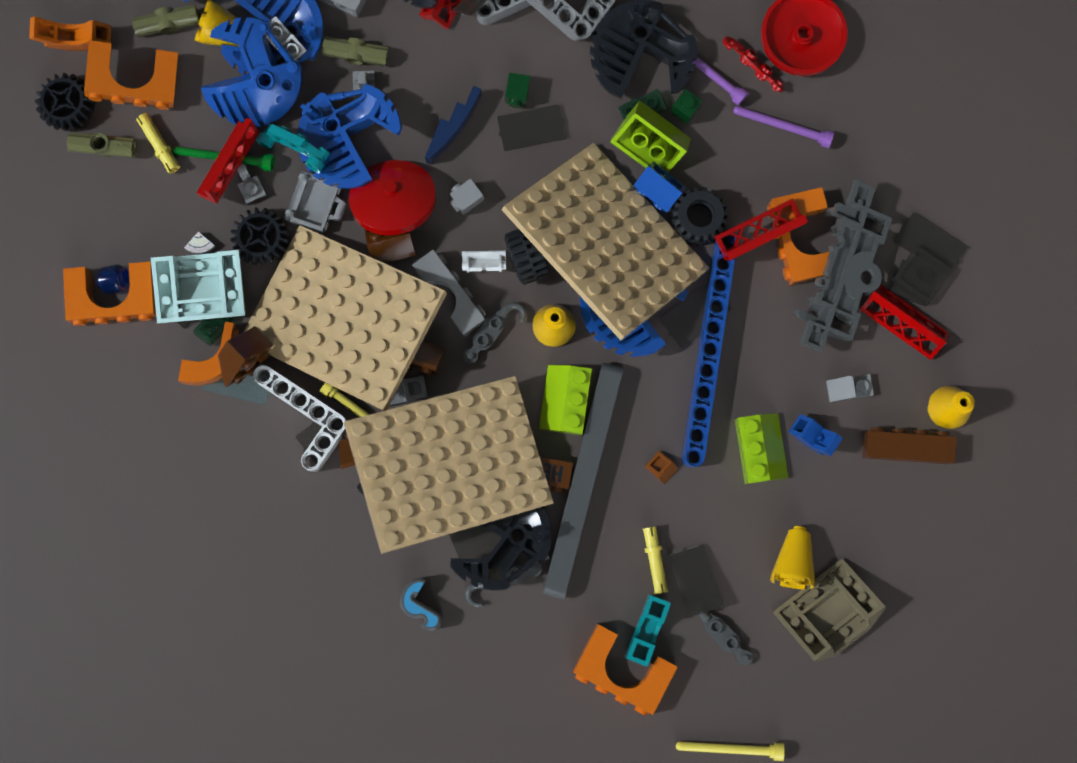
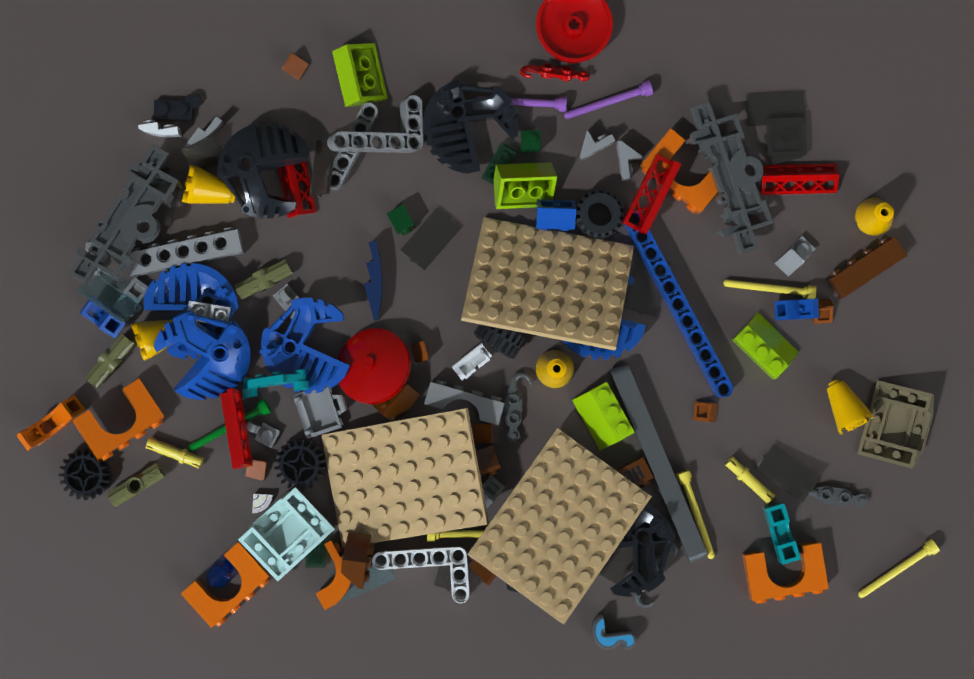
camera: 35 degrees left, 5 degrees up
(218, 213) = (258, 469): none -> dark orange slope
(445, 219) = (420, 351): none -> dark orange slope
(445, 333) = (482, 433): none -> dark orange slope
(465, 197) = (423, 325): light grey brick -> none
(595, 514) = (684, 478): none -> light yellow piece
(736, 154) = (590, 147): none -> light grey slope
(763, 183) = (626, 154): none -> light grey slope
(835, 427) = (807, 292): none -> light yellow piece
(839, 459) = (825, 312): none -> dark orange slope

